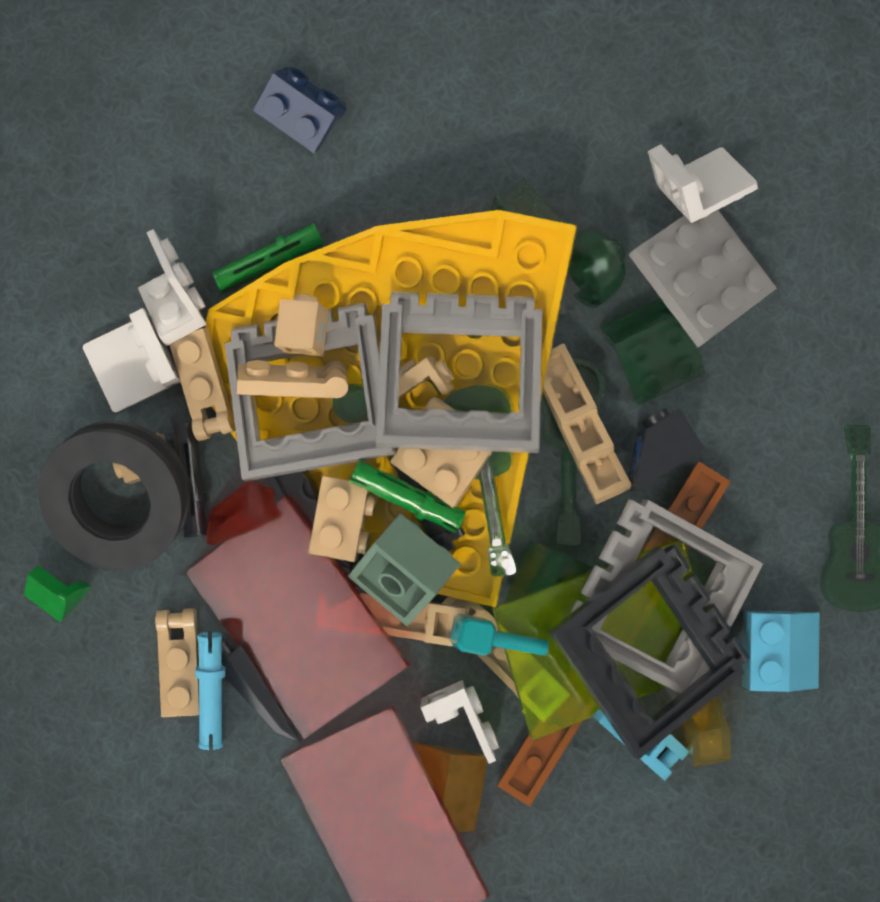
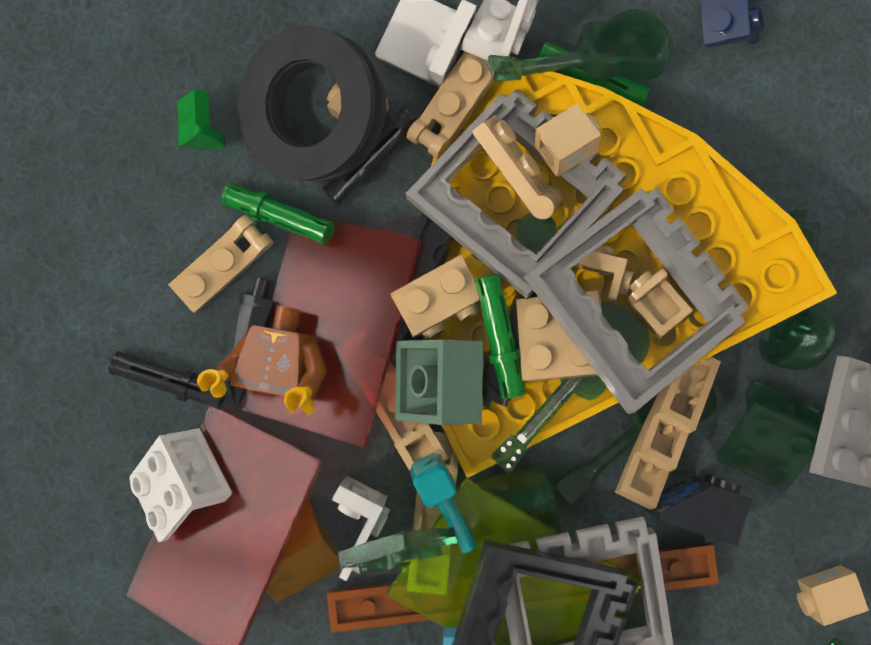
camera: 55 degrees right, 0 degrees up
(163, 594) = (264, 208): none -> green pin
(210, 690) = (231, 295): medium azure pin -> none
(240, 513) = (378, 215): clear red slope -> none
(266, 215) = (628, 46): none -> clear green piece
(272, 751) = (126, 367): none -> black pin
(288, 684) = (272, 363): none -> torso
(316, 831) = (177, 478): none -> white bracket
(476, 361) = (657, 303): none -> tan bracket
(501, 701) = (397, 550): none -> clear green plate
(808, 404) = (831, 595): none -> tan brick

